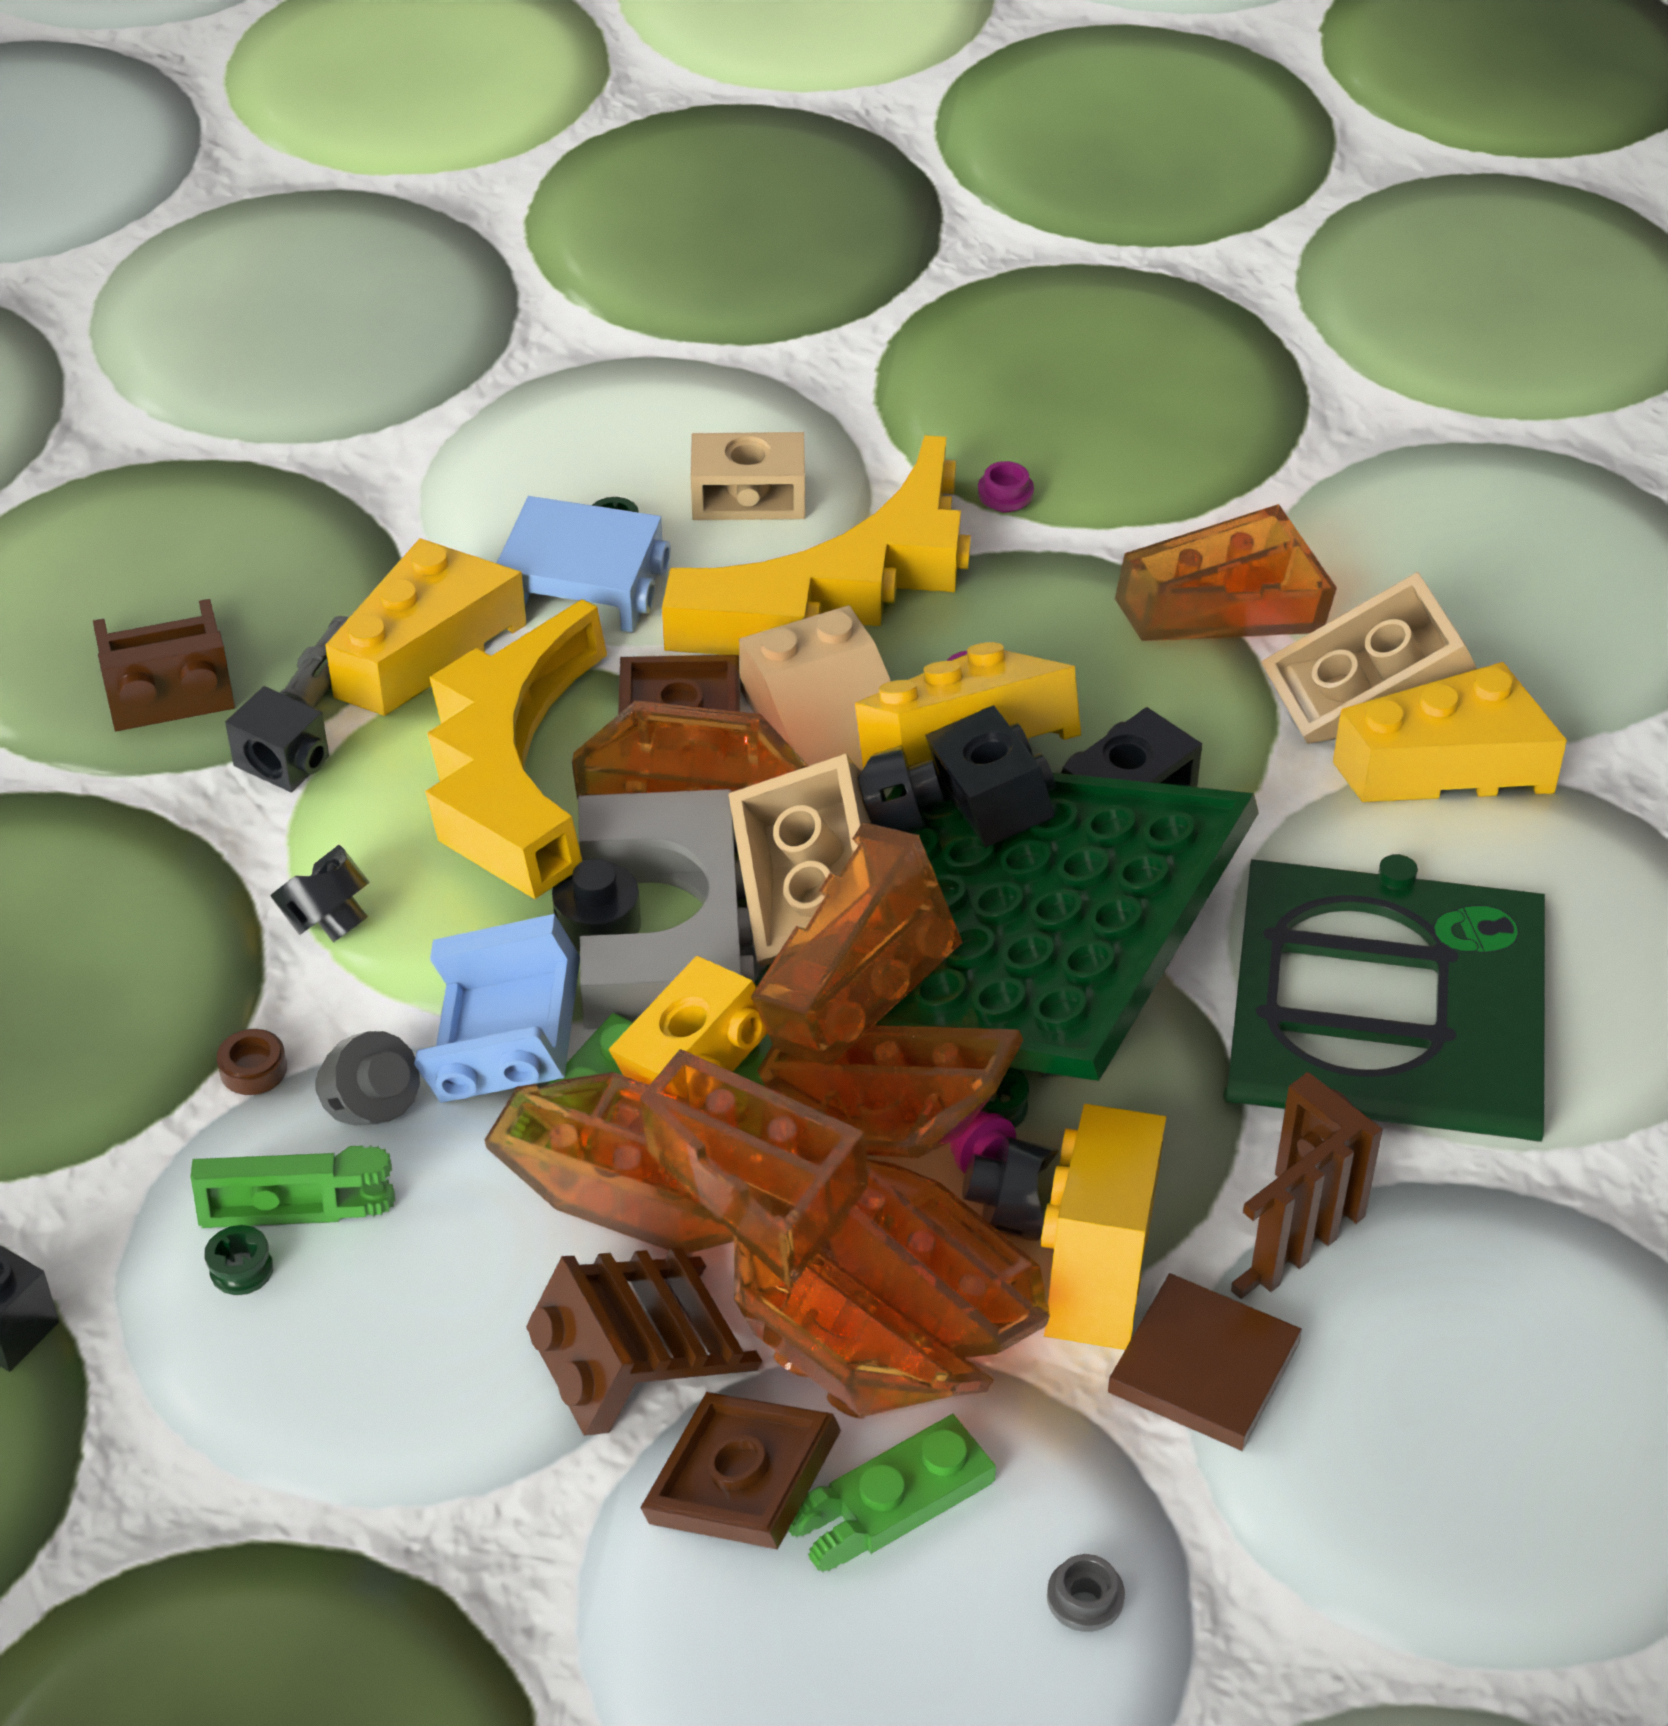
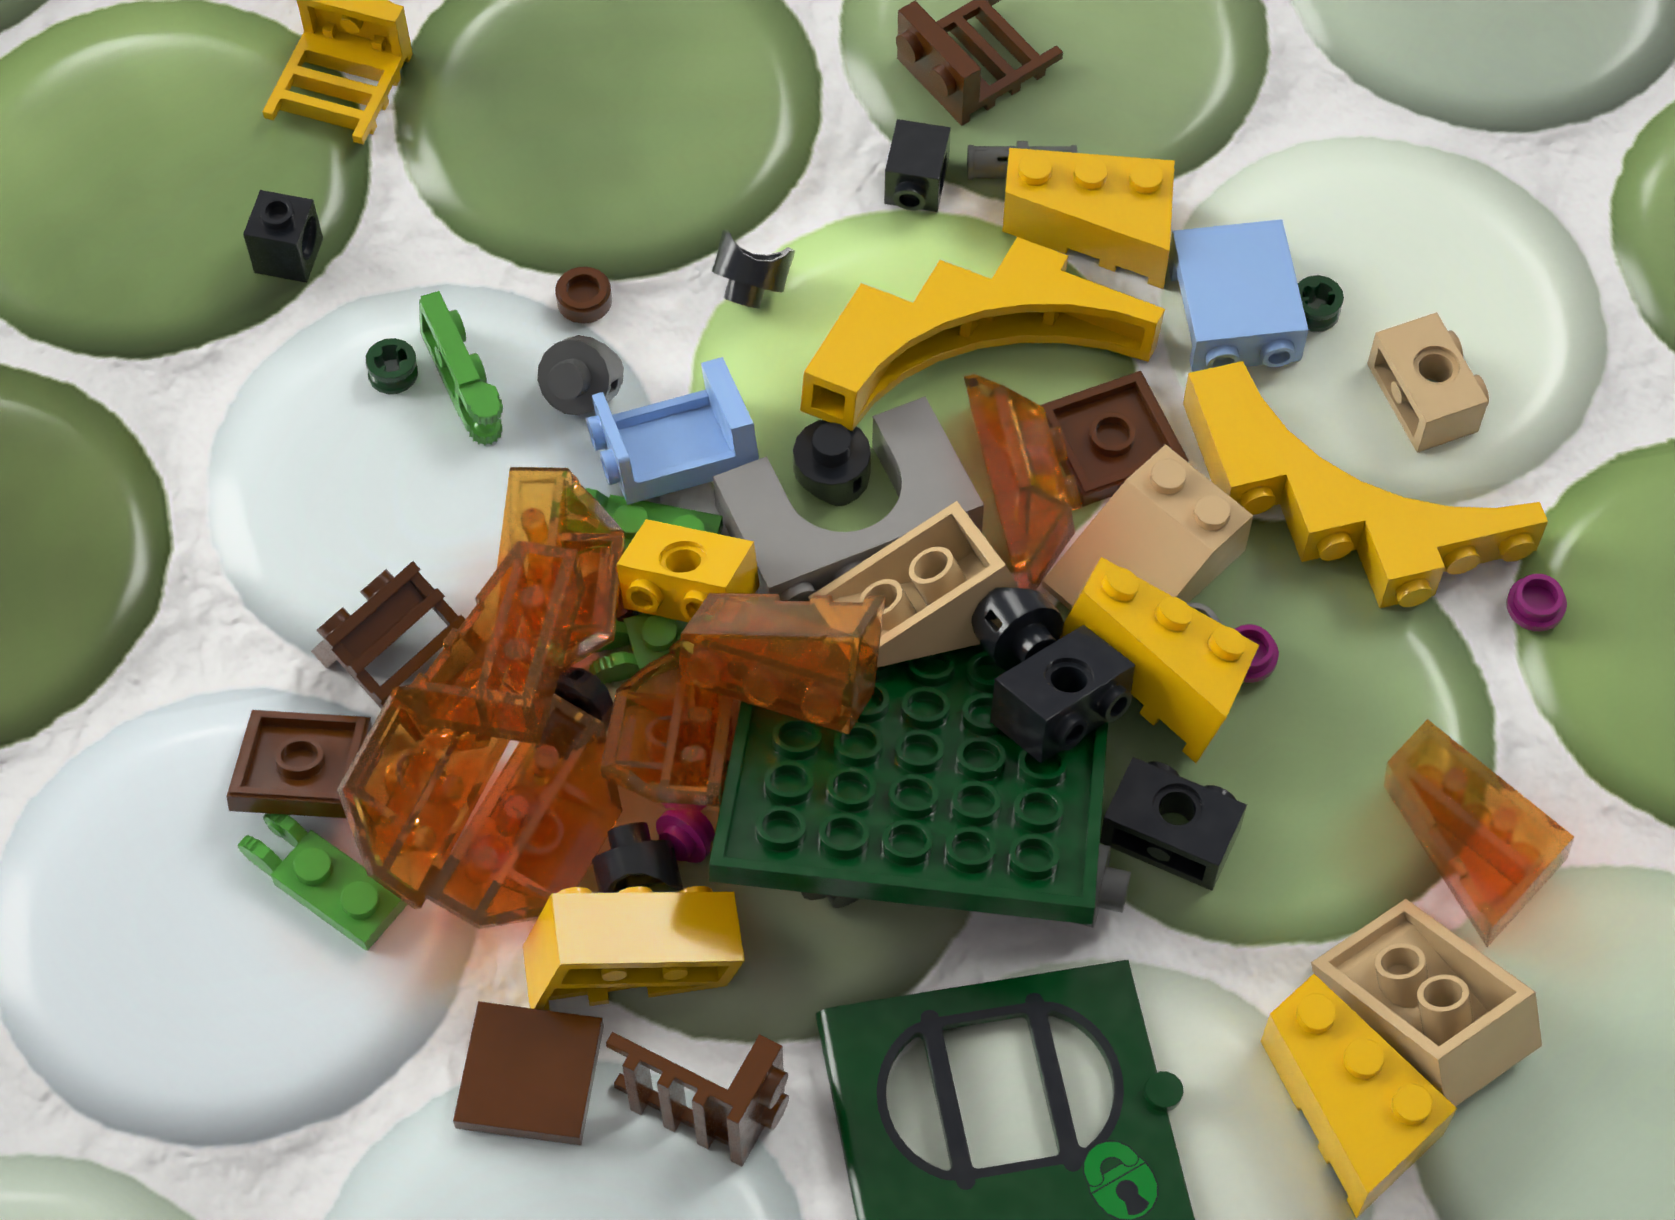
camera: 70 degrees right, 15 degrees up
(1090, 1575) = (260, 1031): flat silver plate -> none

